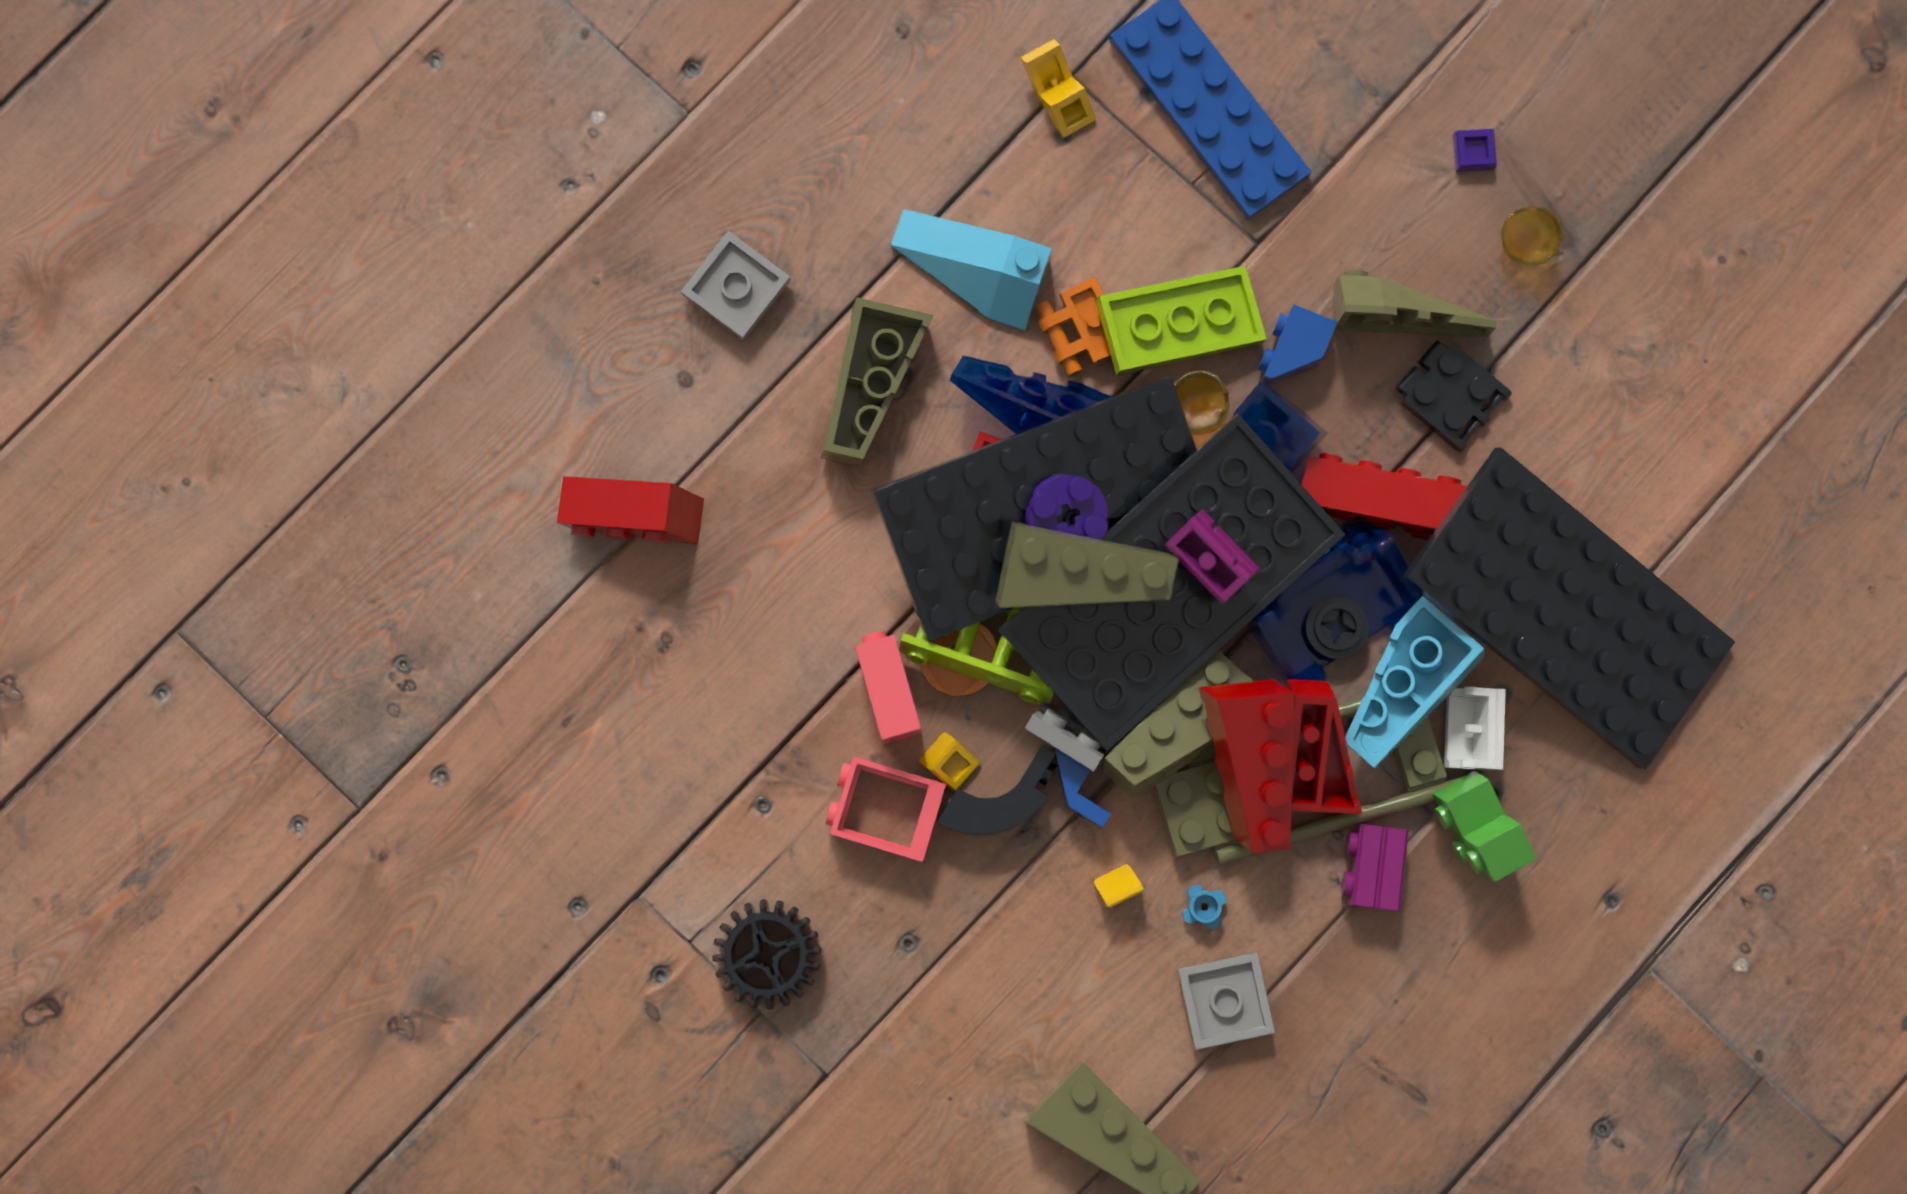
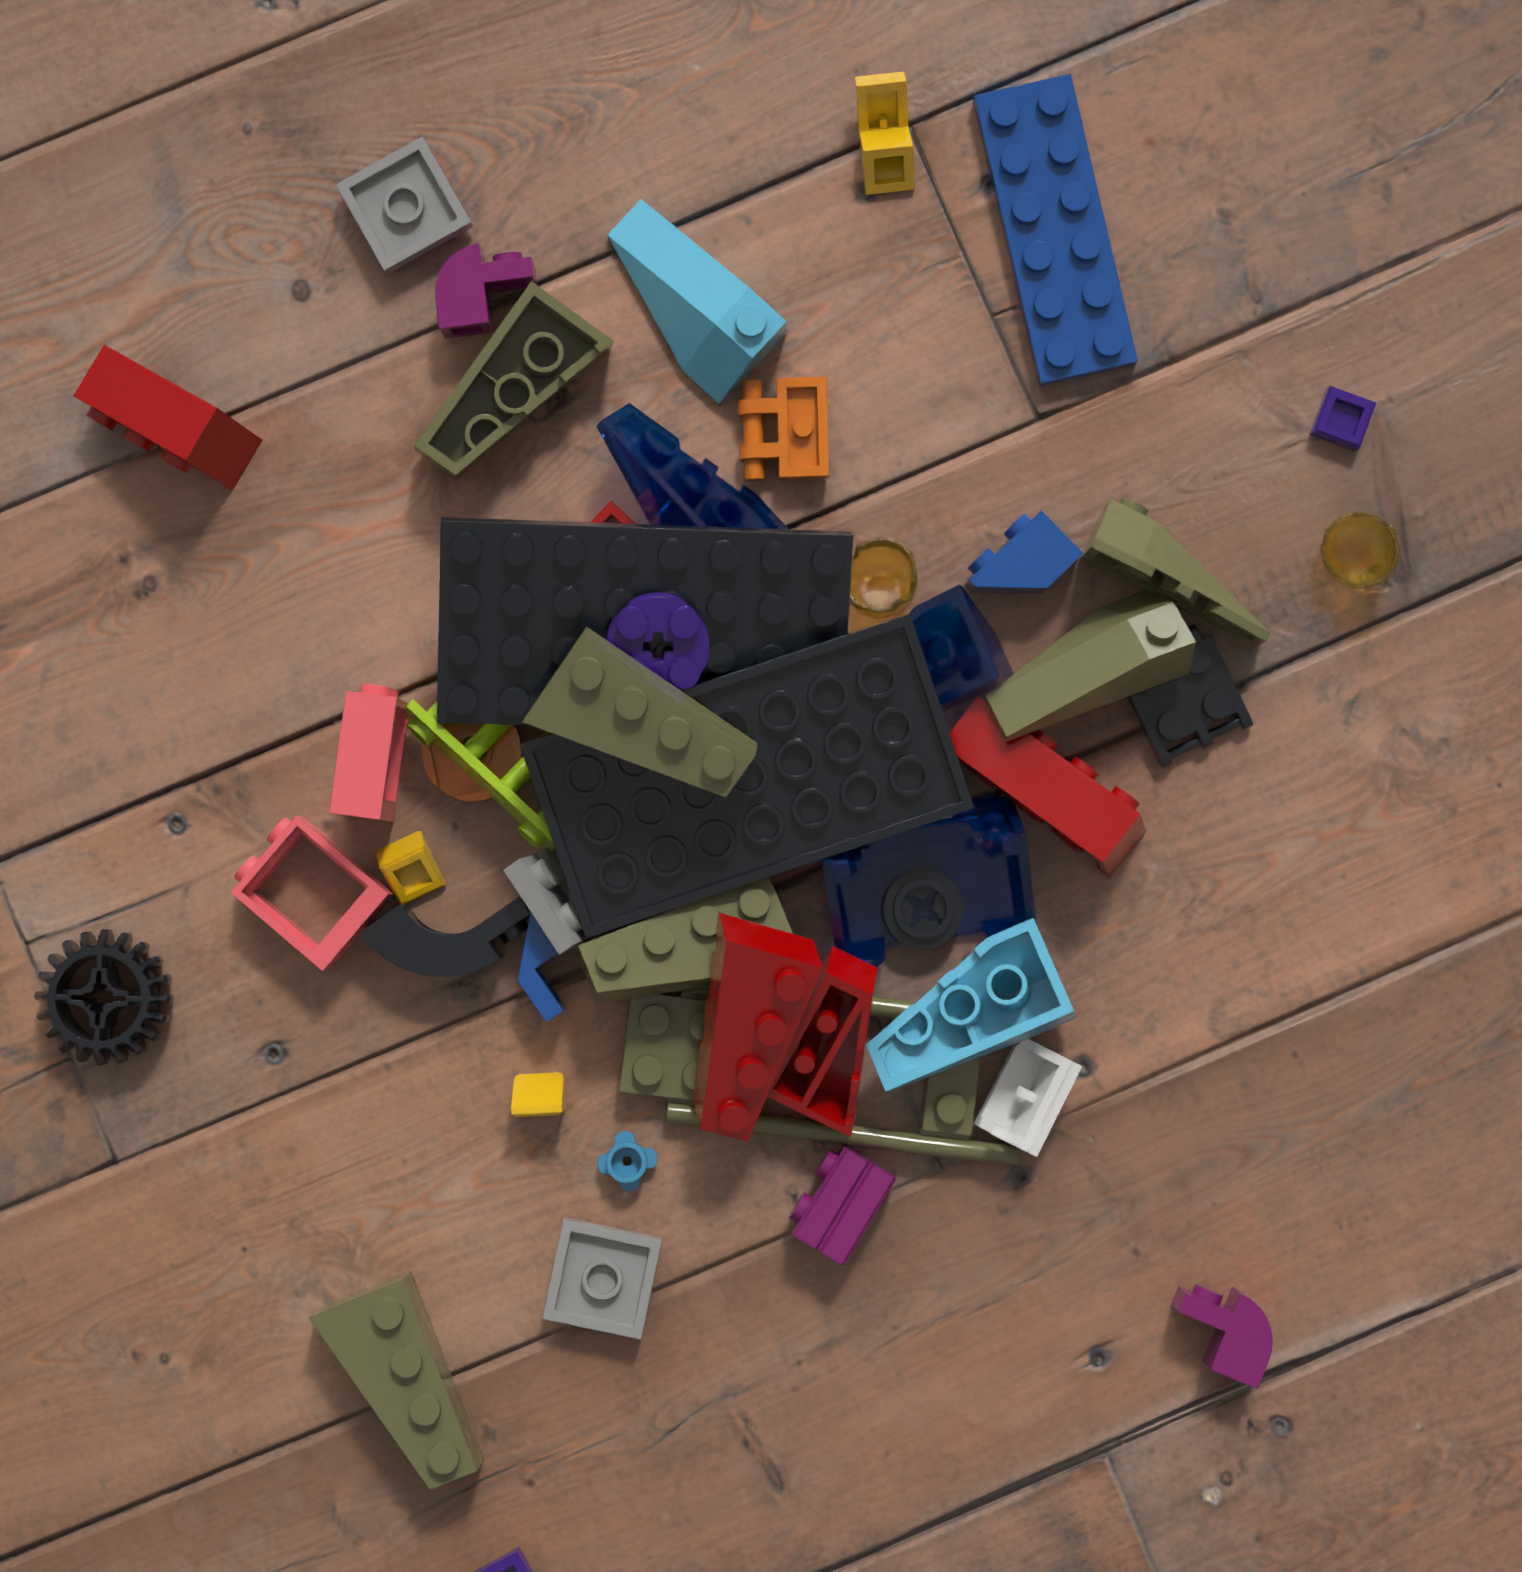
camera: 25 degrees right, 5 degrees up
(807, 321) = (465, 287): none -> magenta brick
(1180, 320) = (902, 471): lime plate -> none
(1212, 556) = (800, 768): magenta brick -> none
(1383, 394) = (1097, 662): none -> olive wedge
(1481, 829) = (982, 1223): bright green brick -> none
(1569, 608) = (1197, 1005): black plate -> none
(1708, 835) = (1241, 1333): none -> magenta brick

